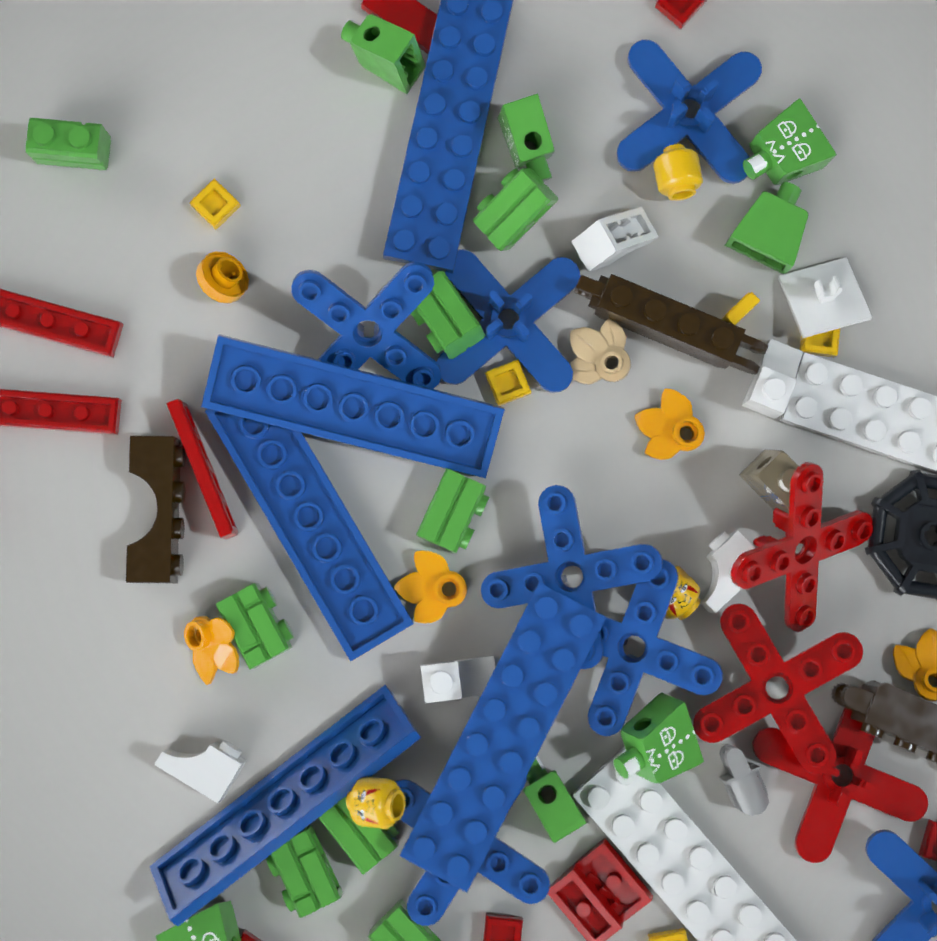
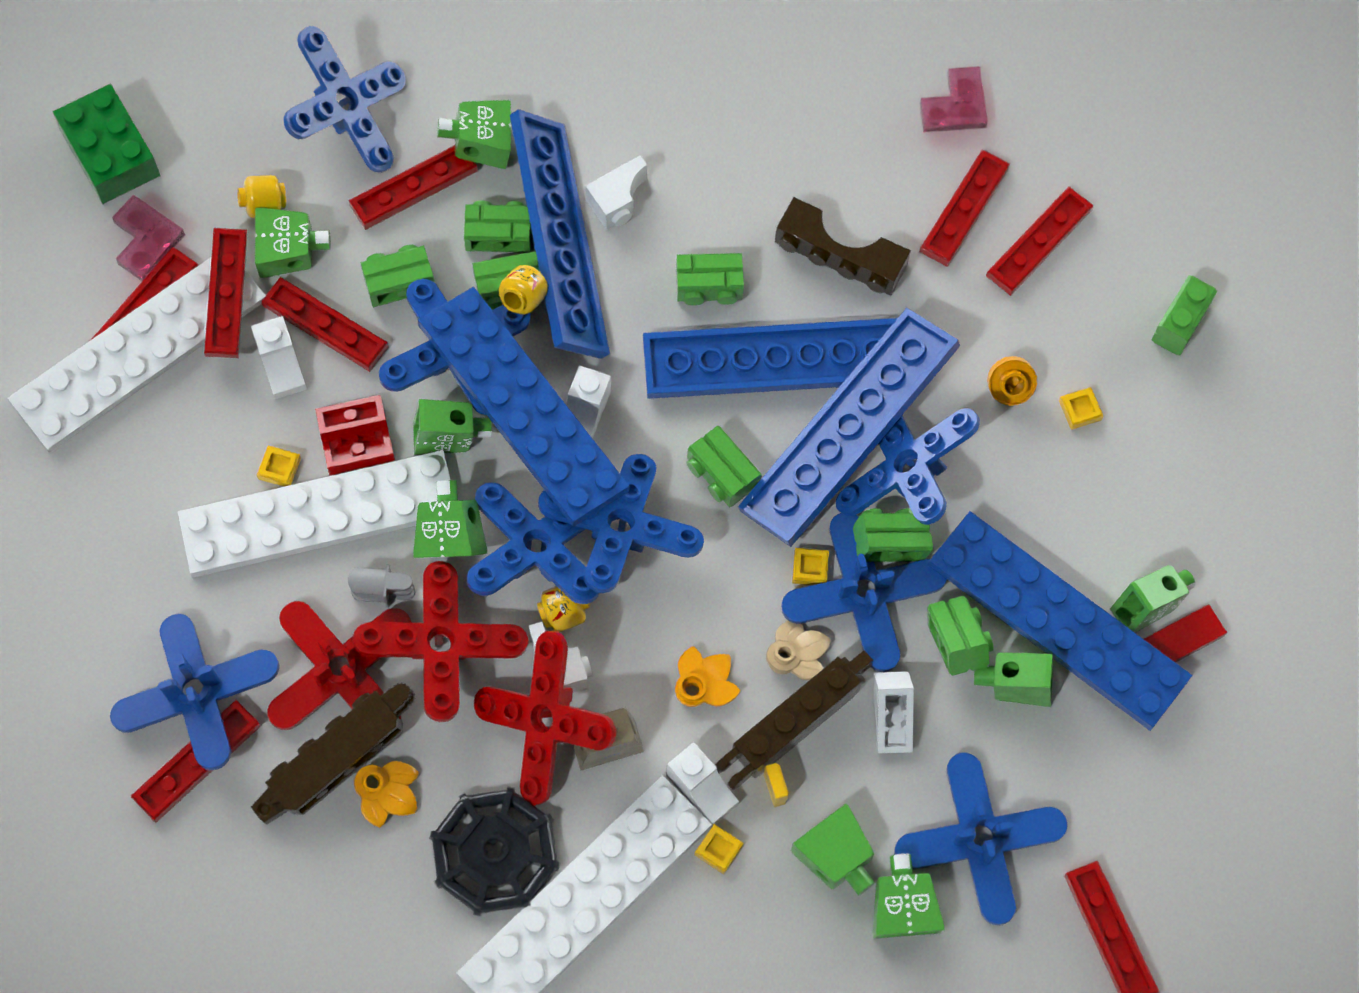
camera: 115 degrees right, 15 degrees down
(202, 469) = (856, 295): red tile -> none
(211, 646) = (715, 239): light orange plate -> none
(426, 587) = (671, 421): light orange plate -> none
(678, 172) = (927, 793): yellow head -> none
(824, 297) = (752, 868): white piece -> none

